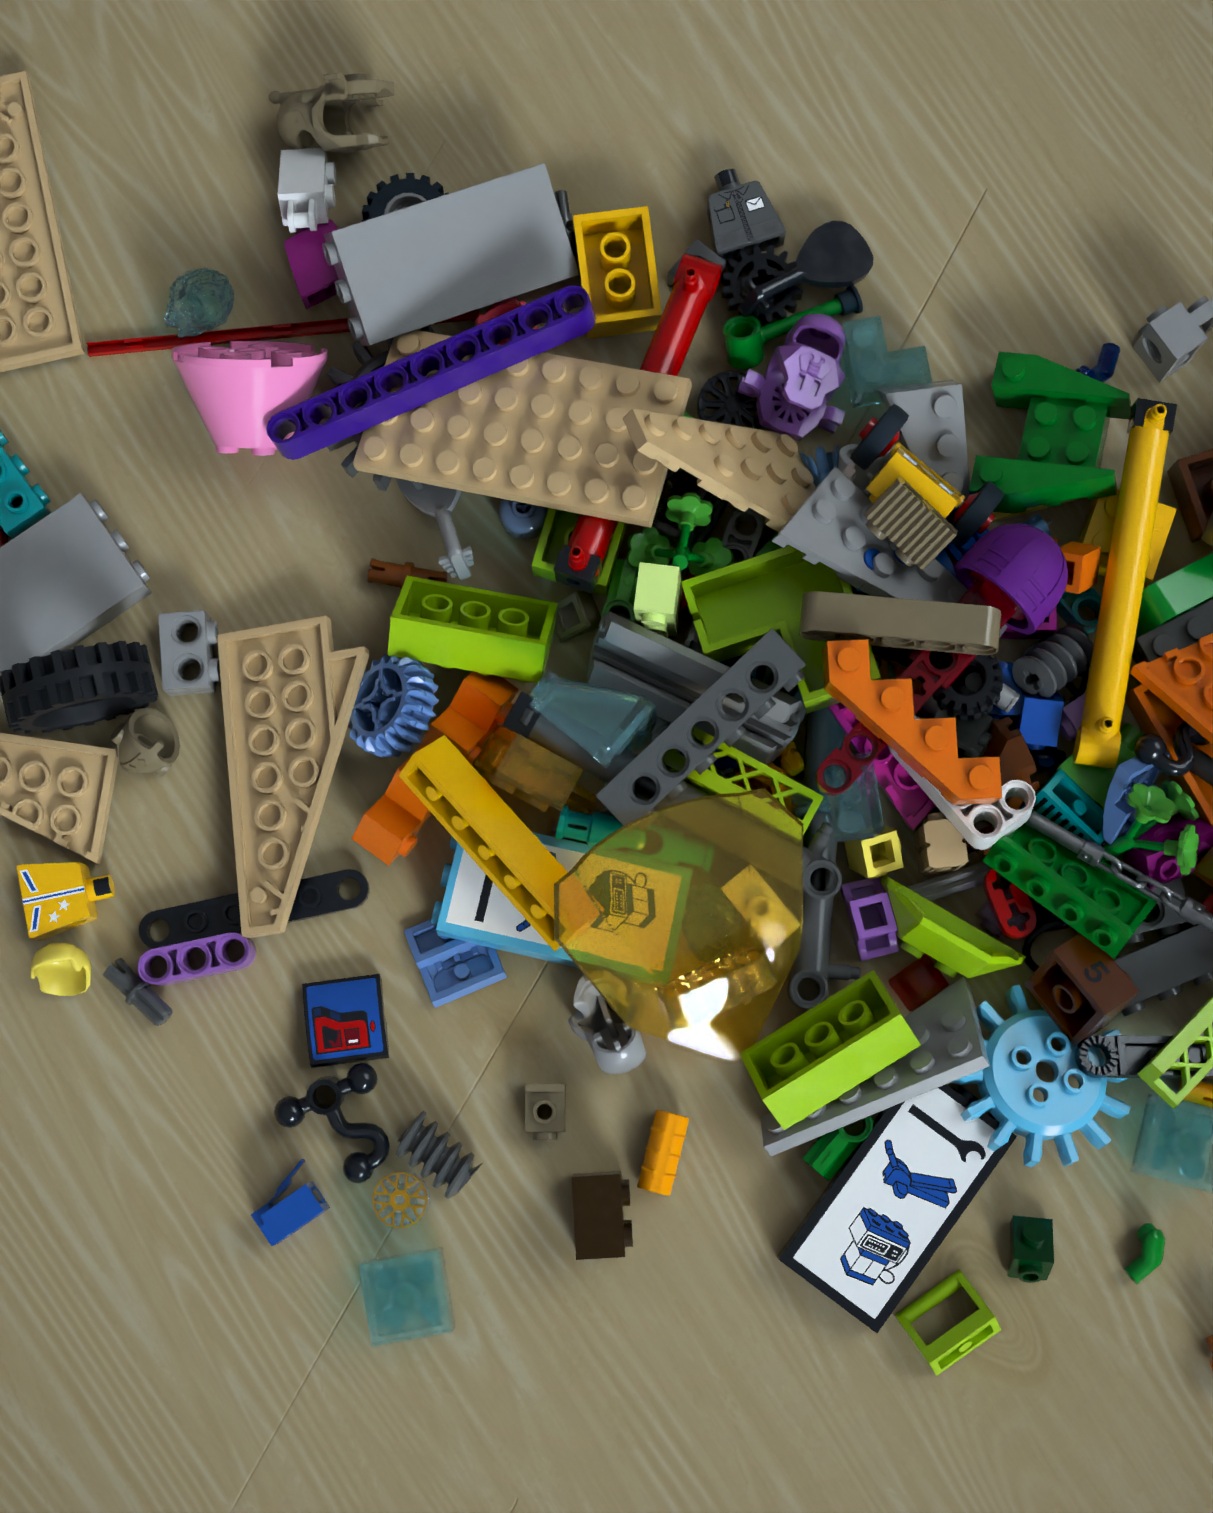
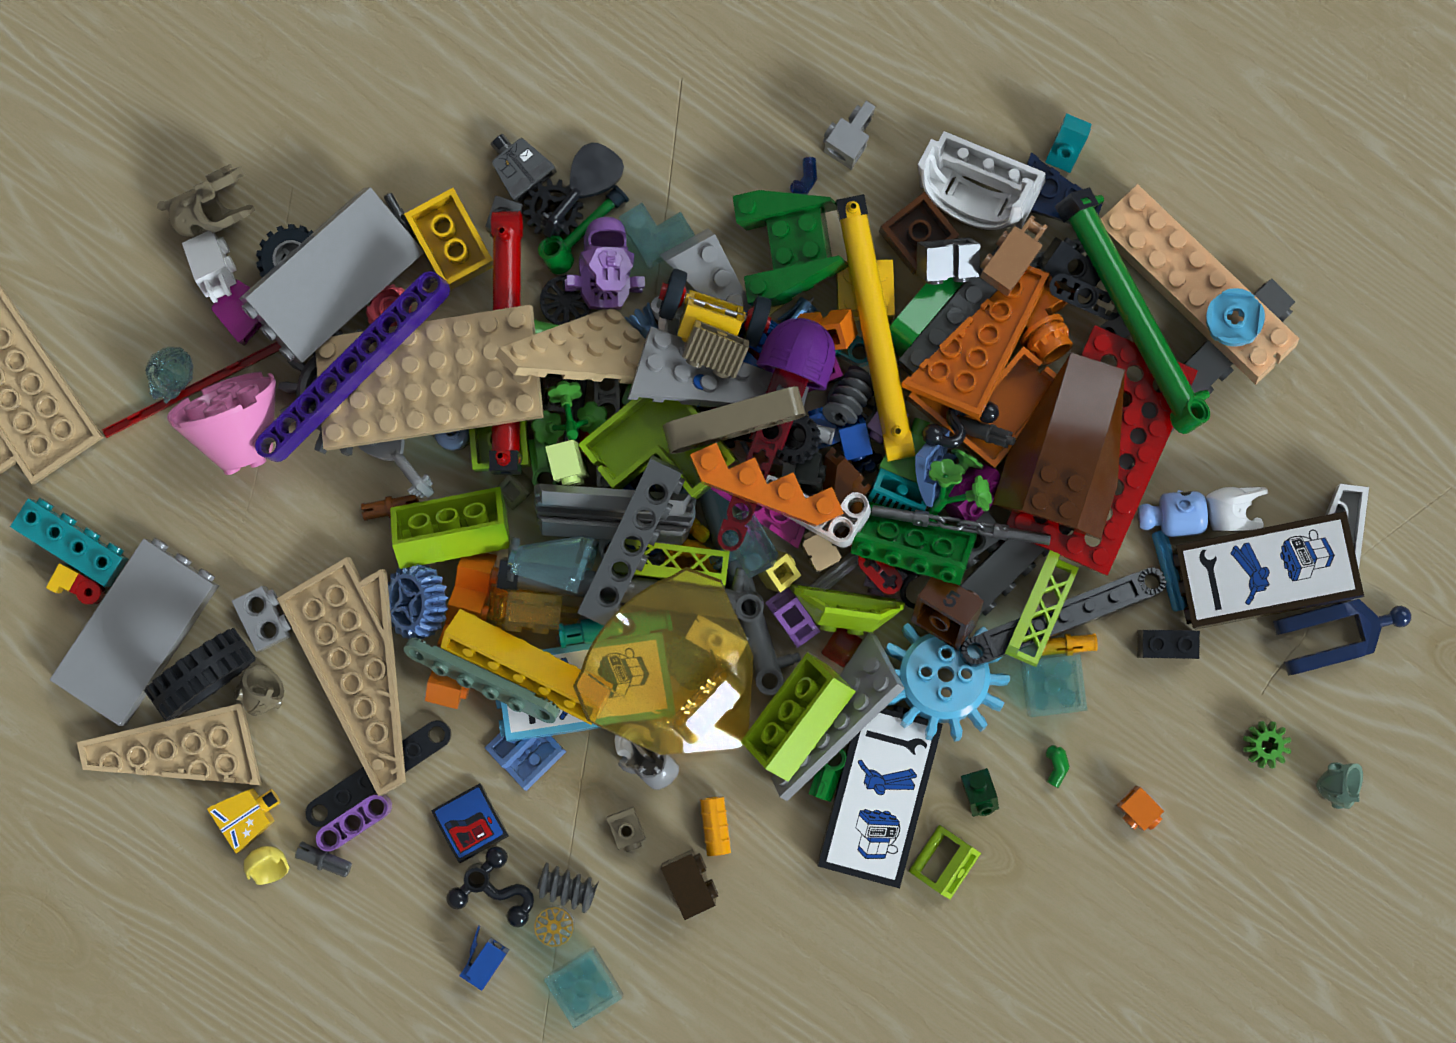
camera: 25 degrees left, 5 degrees up
(434, 836) = (482, 680): none -> sand green plate

